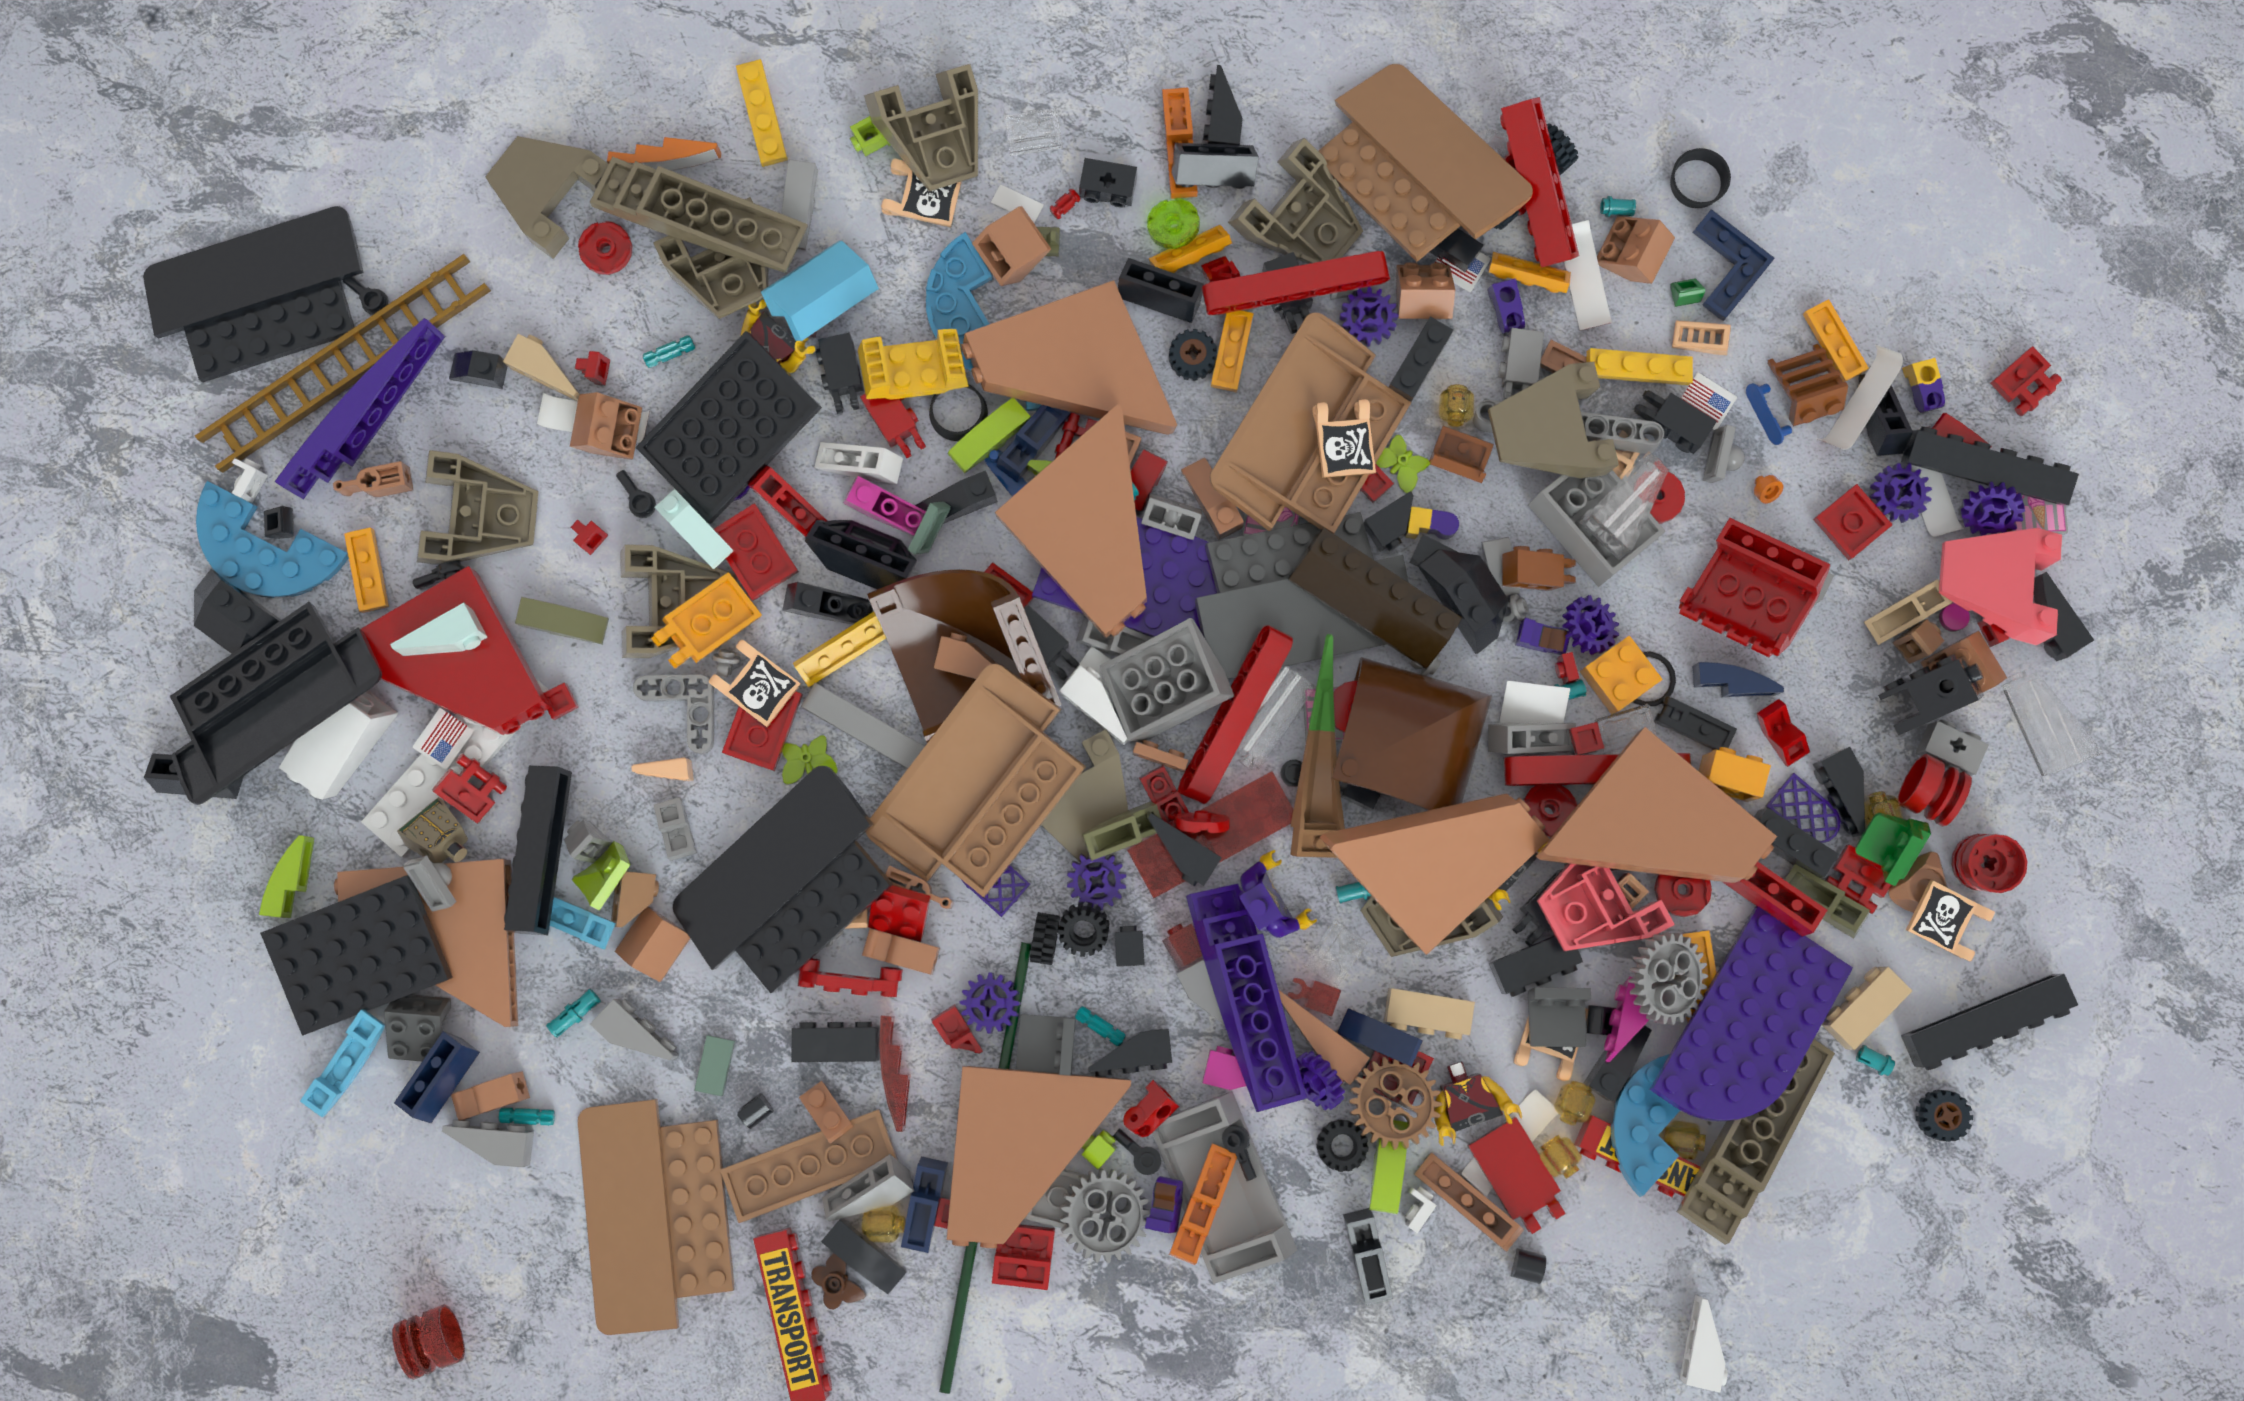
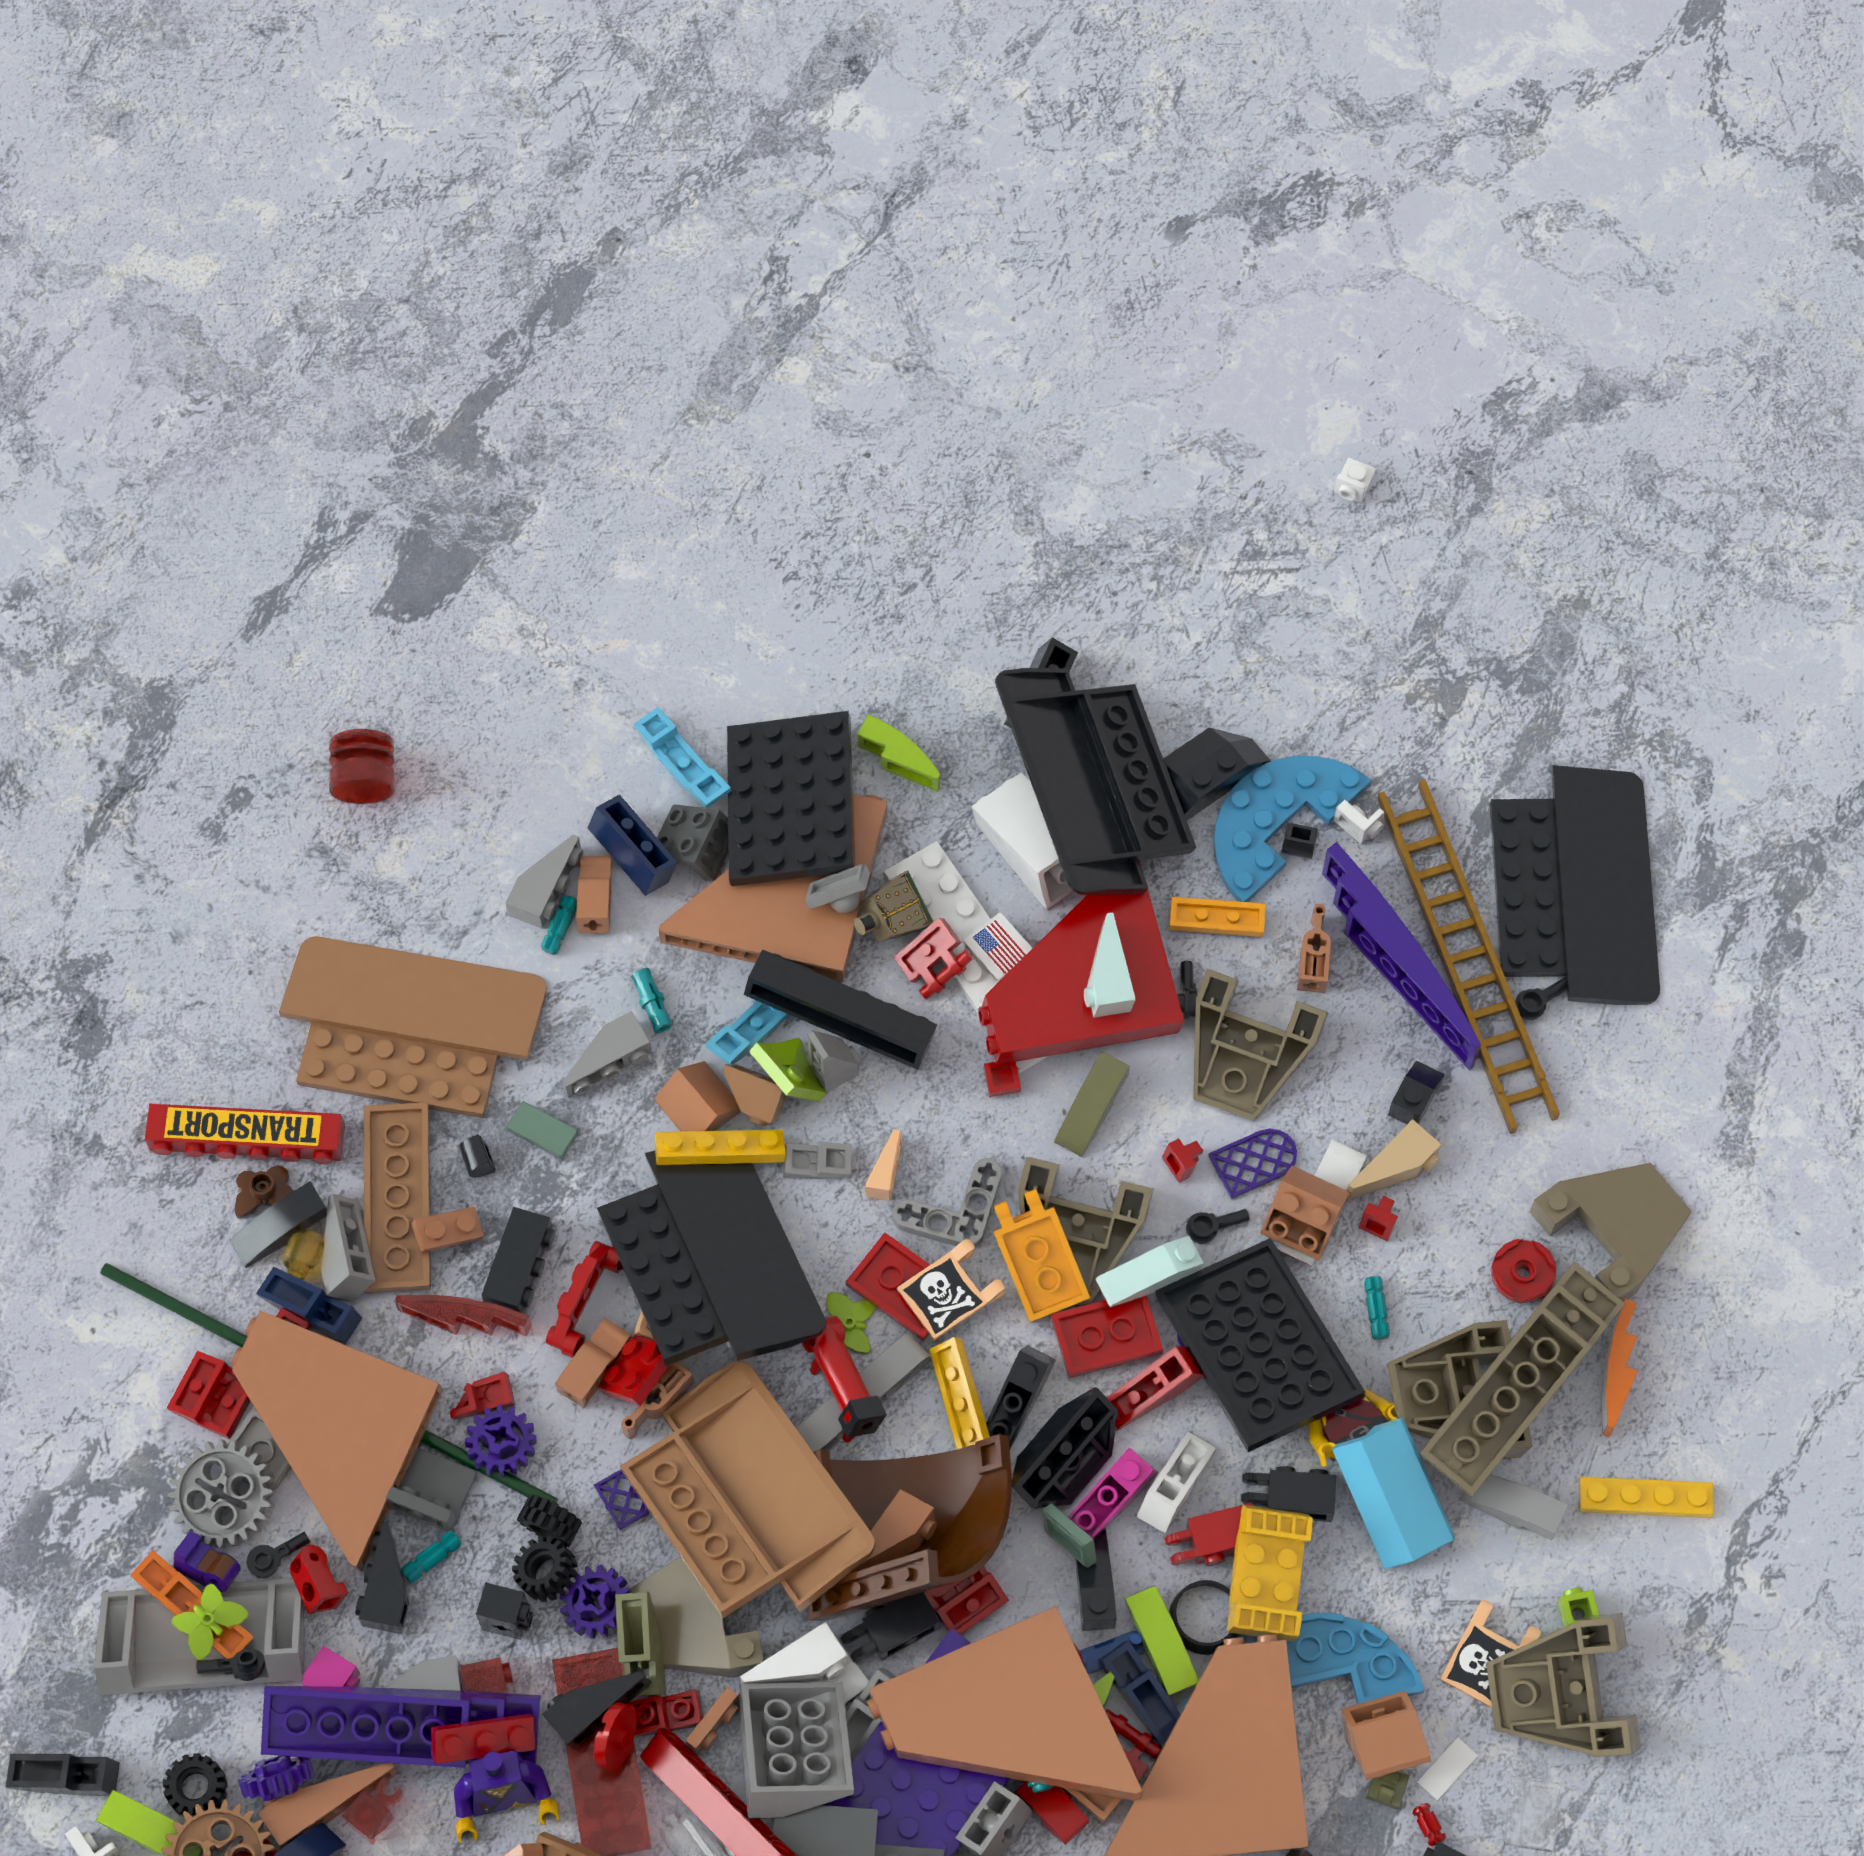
camera: 105 degrees right, 15 degrees down
(565, 501) = (1253, 1137): none -> dark purple window
(688, 911) = (719, 1147): none -> yellow plate
(726, 660) = (988, 1266): light grey plate -> none
(879, 720) = (860, 1411): none -> red piece
(1099, 1148) = (296, 1511): lime plate -> none
(1212, 1185) = (207, 1617): none -> lime piece
(1238, 925) = (481, 1737): none -> red plate

